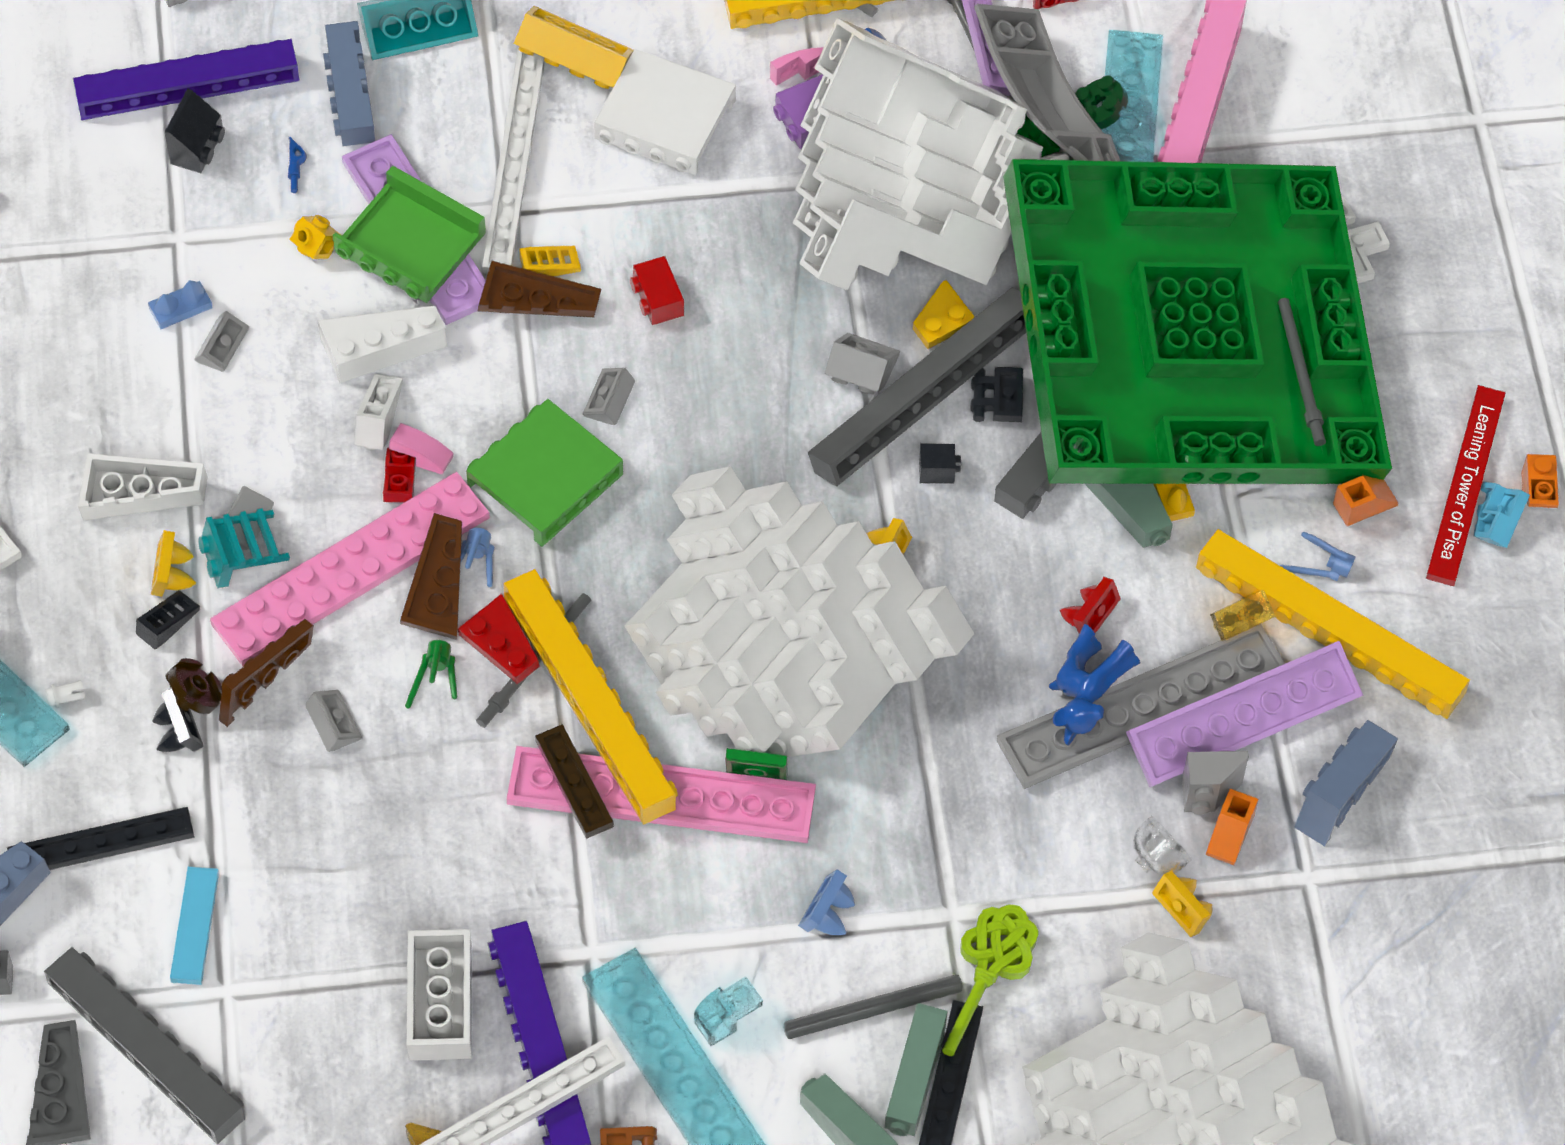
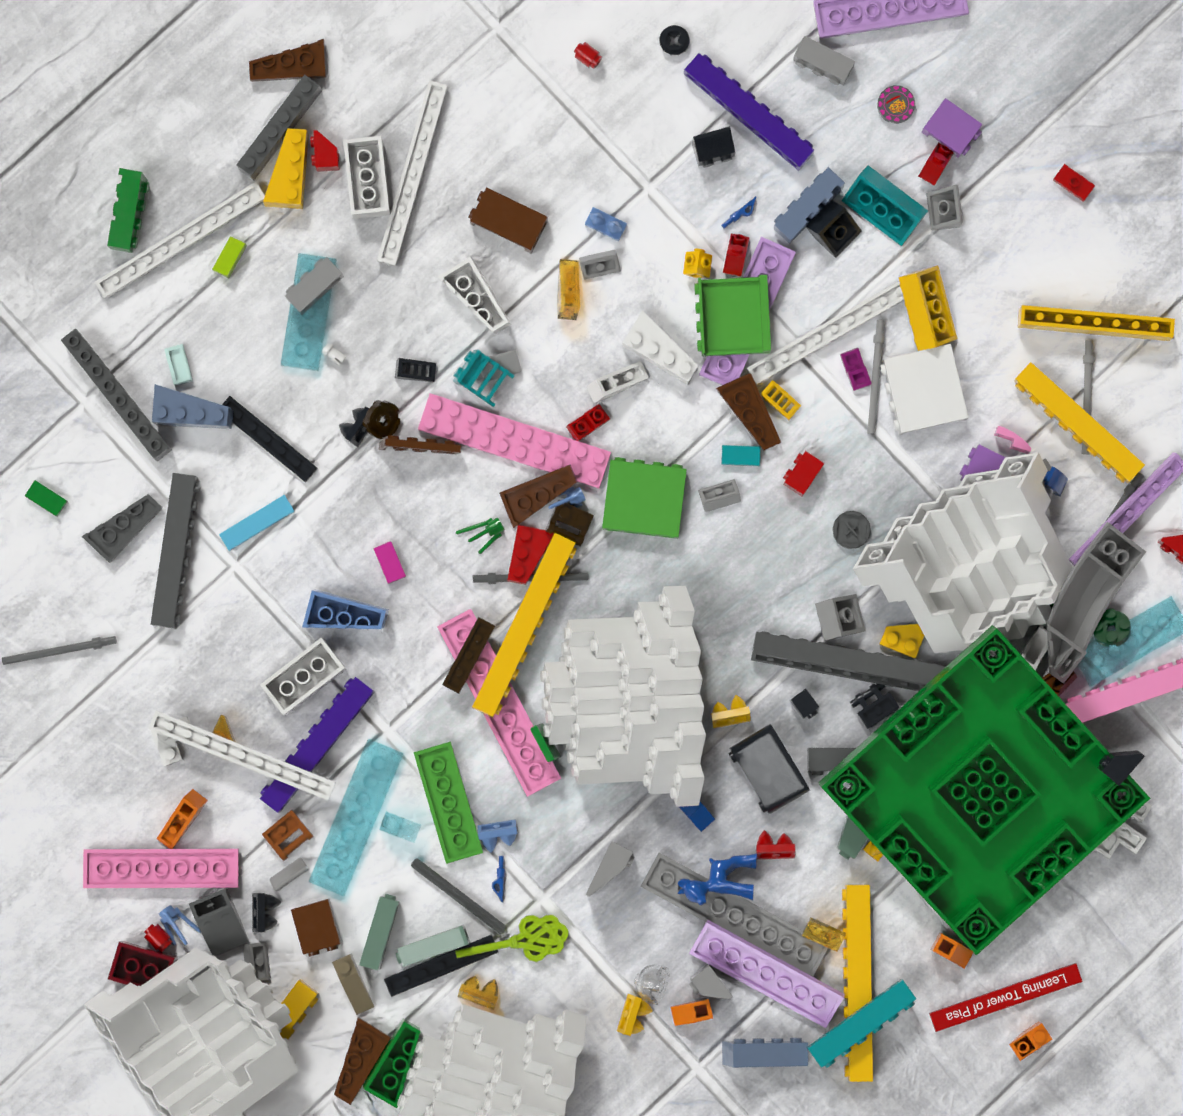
camera: 60 degrees right, 25 degrees up
(23, 98) = (674, 31): none -> black gear
(78, 393) = (508, 219): none -> reddish brown panel
(164, 574) = (437, 352): yellow tile -> none
(226, 390) = (568, 290): none -> clear yellow slope
(332, 719) = (420, 501): light grey slope -> none
(340, 194) = (736, 254): none -> red slope
(379, 804) = (389, 562): none -> dark pink tile
(395, 894) = (334, 611): none -> medium blue wedge
(397, 81) = (834, 228): none -> black slope
(428, 451) = (610, 423): bright pink slope -> none
(498, 563) = (573, 517): none -> dark brown plate
(568, 123) = (878, 339): none -> light grey bar
(578, 167) = (855, 369): none -> magenta slope
(580, 343) = (740, 455): none -> teal tile
(741, 936) = (448, 802): none -> bright green plate
(766, 289) = (851, 529): none -> dark grey tile
(890, 944) = (500, 879): none -> blue hand
(970, 779) = (613, 863): none -> light grey slope
(976, 665) = (698, 815): none -> blue slope
(989, 541) = (769, 769): none -> windscreen
(1009, 1072) = (486, 997): none -> clear yellow tile
(1274, 160) = (1120, 764): none -> black slope
(1312, 416) = (974, 893): dark grey bar -> none
(1339, 561) = (901, 961): medium blue plant -> none
(1387, 639) = (861, 1023): none -> teal brick
(1499, 513) = (996, 1028): medium azure slope -> none

